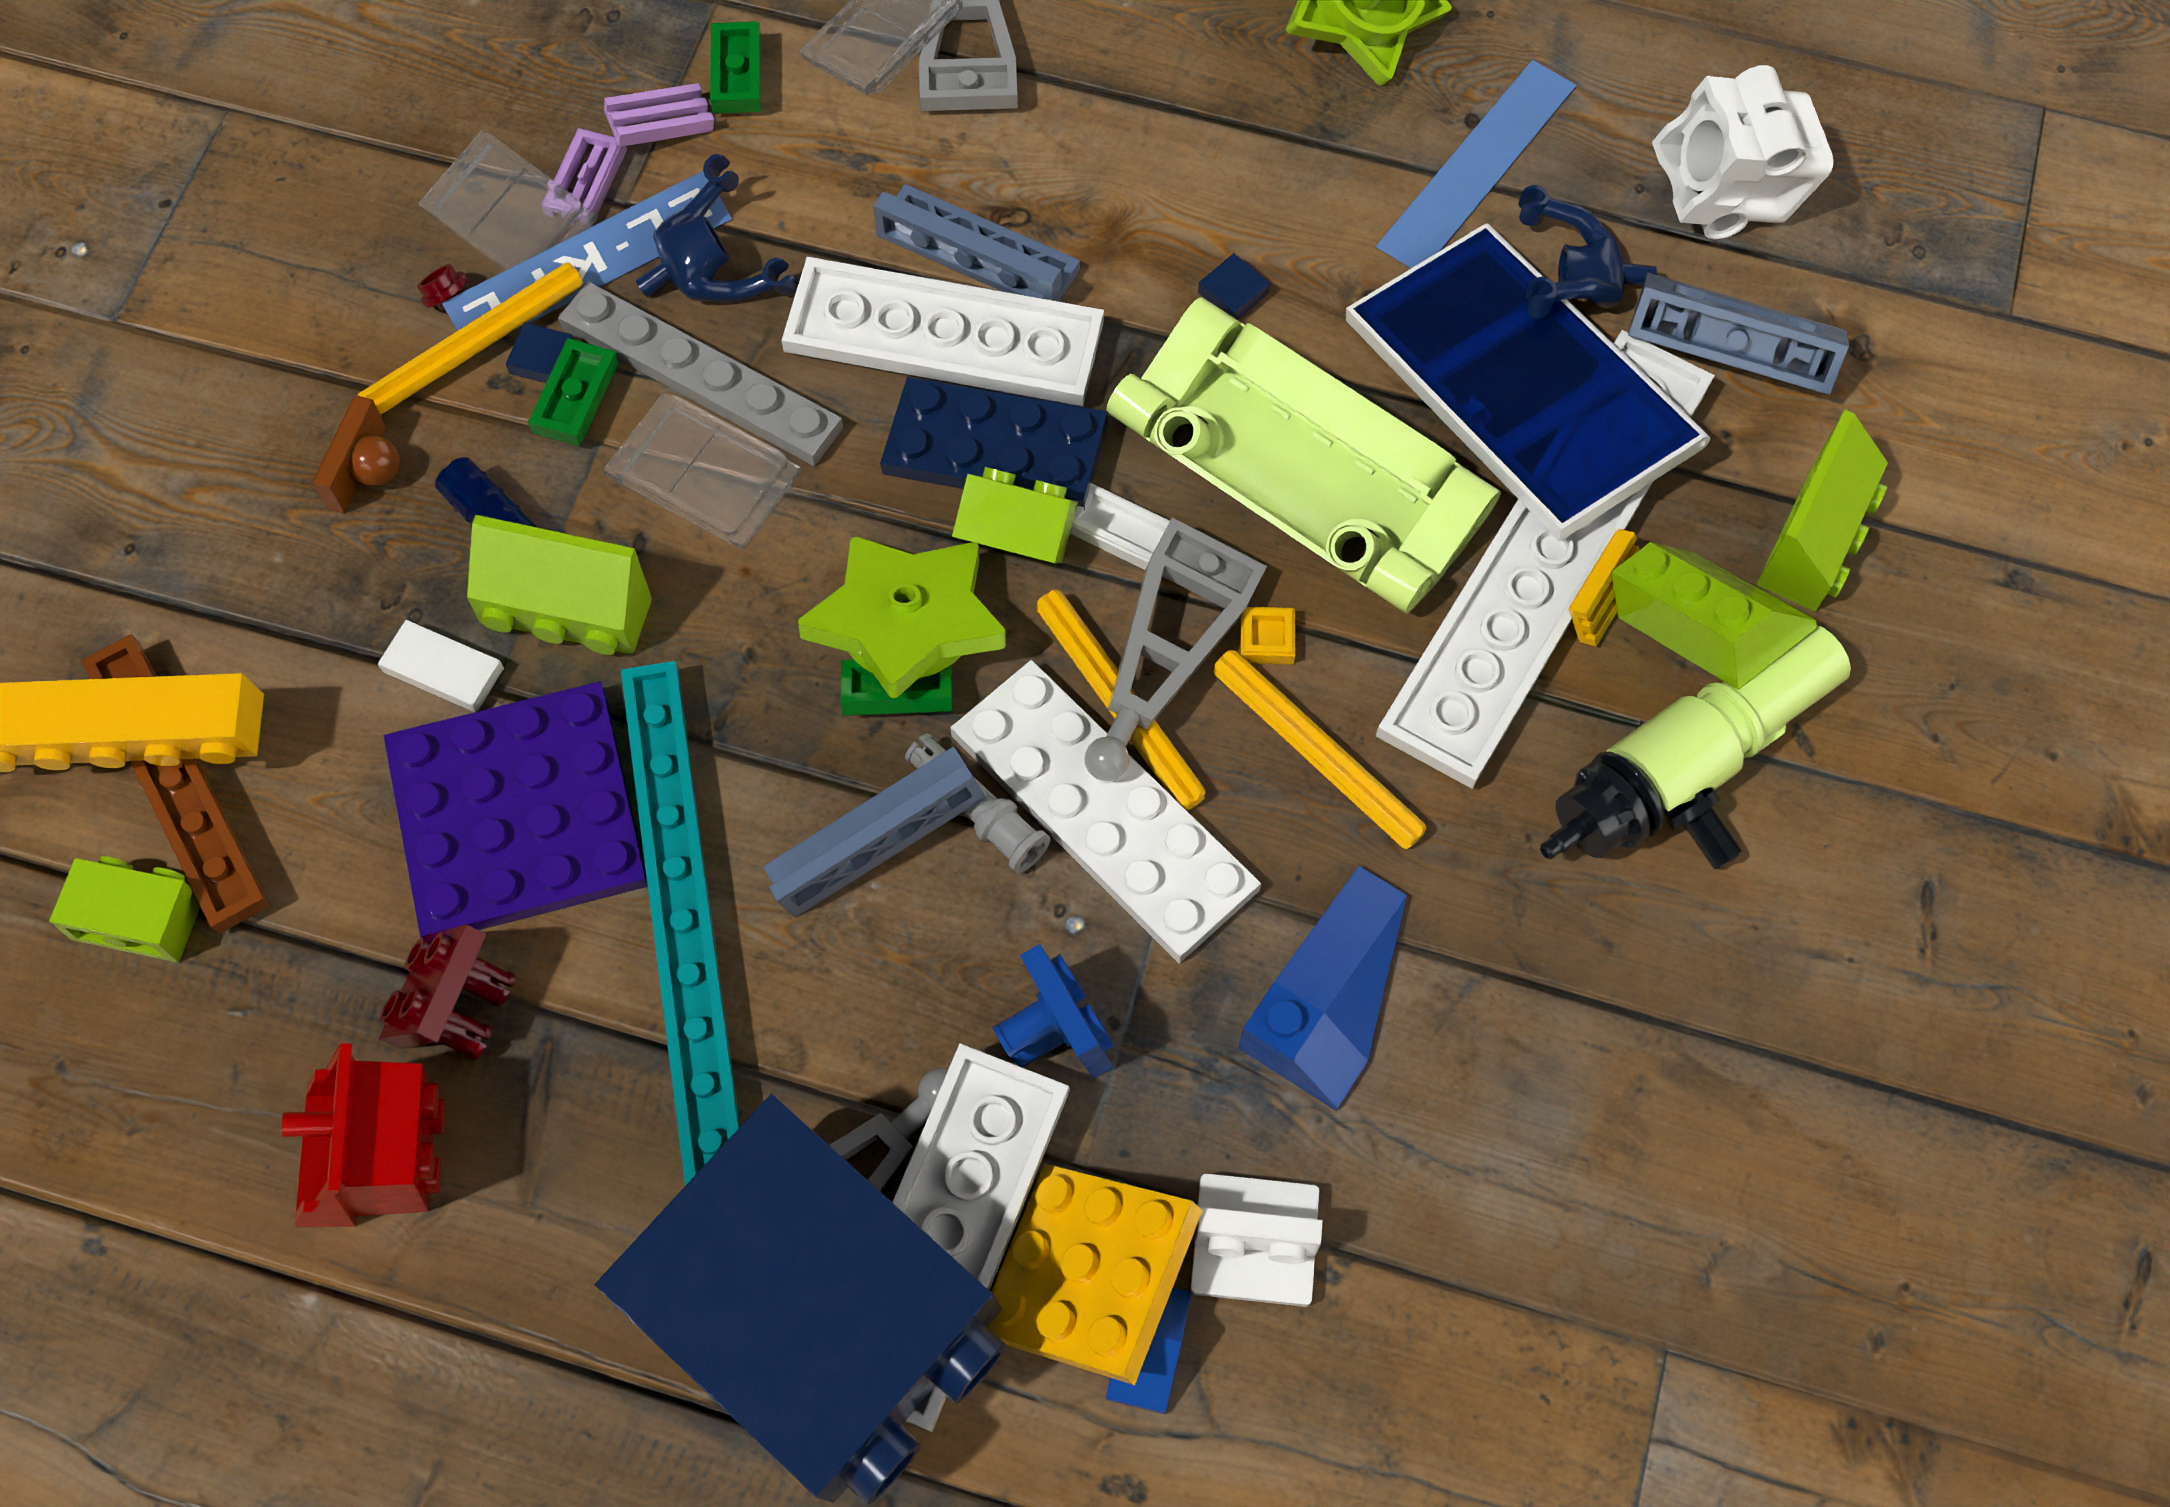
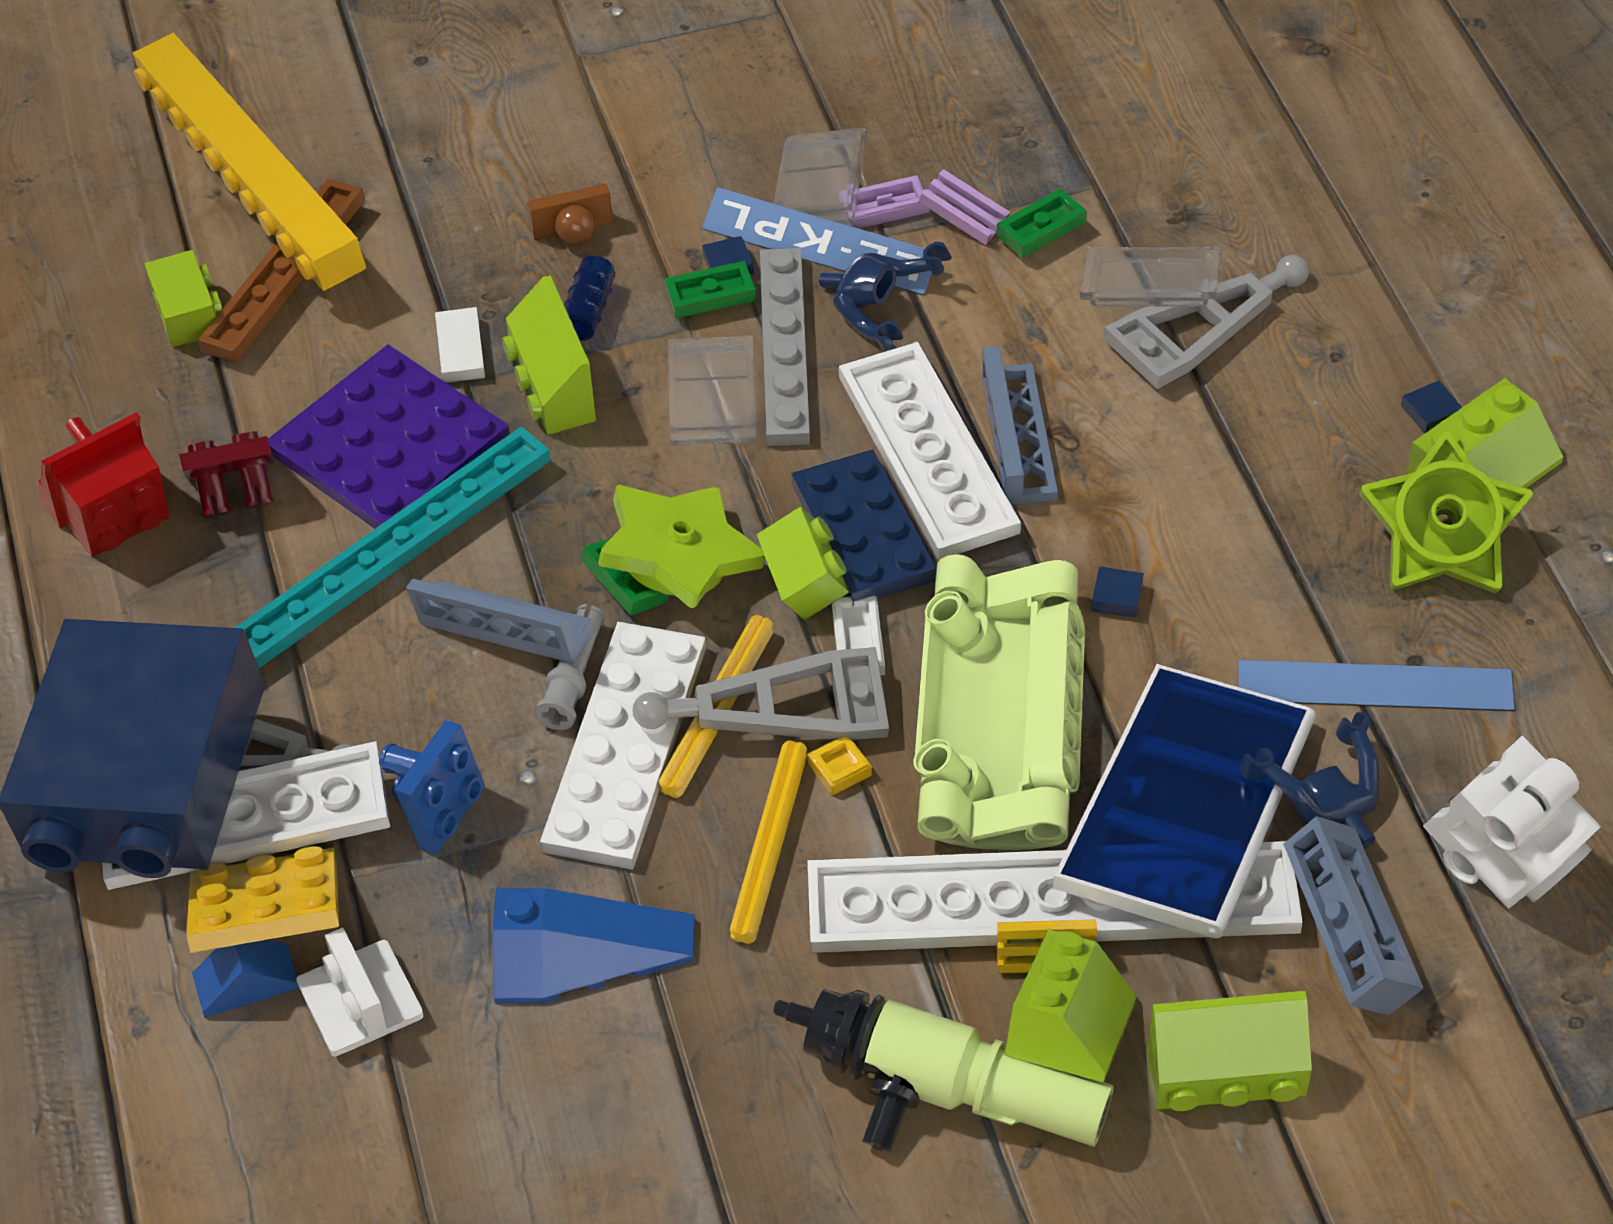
camera: 60 degrees right, 15 degrees down
(441, 286) = (732, 180): dark red plate -> none
(473, 338) = (706, 218): yellow axle -> none

